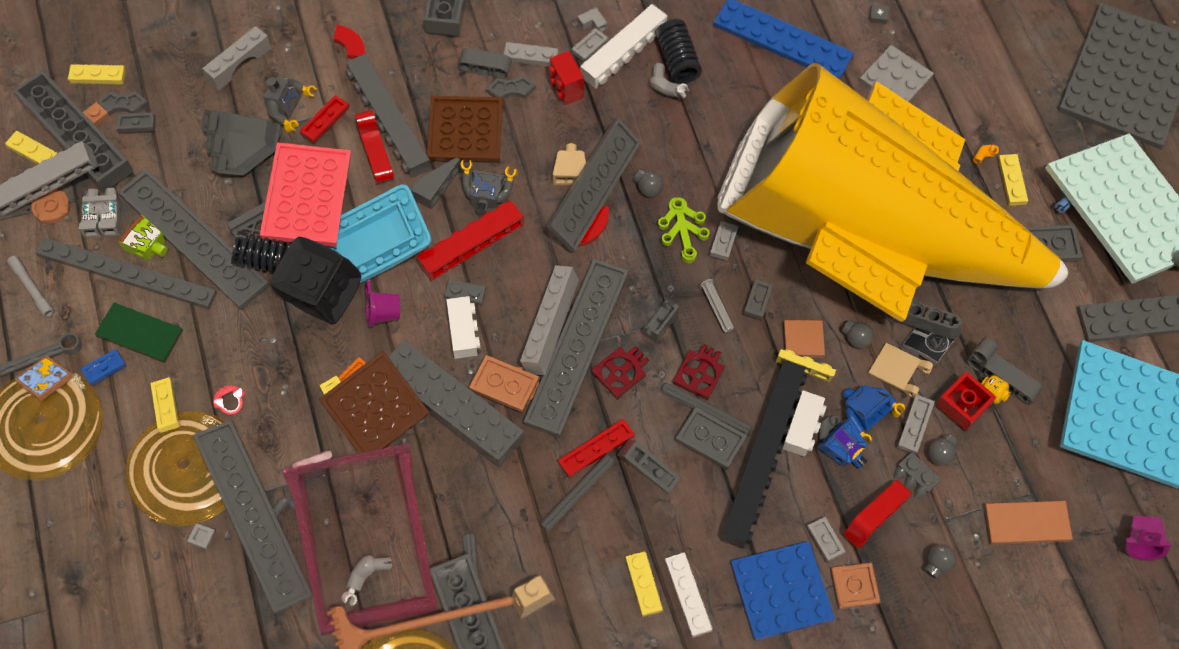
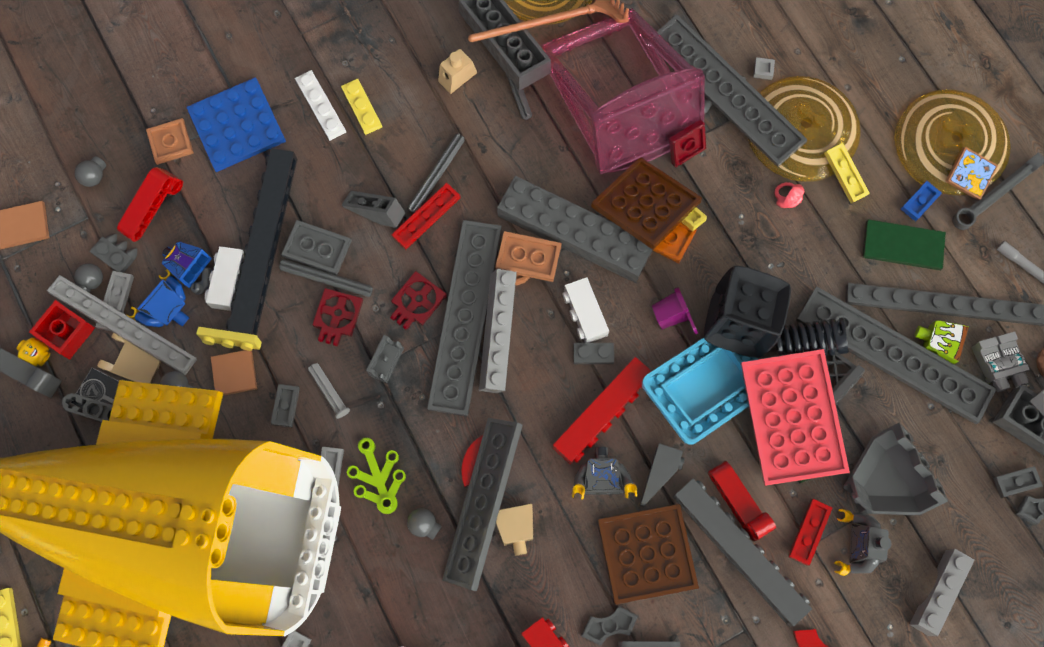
camera: 170 degrees right, 10 degrees up
(361, 571) = (612, 65): light grey arm -> none
(826, 539) = (198, 173): light grey plate -> none
(909, 396) = (121, 325): none -> light grey tile

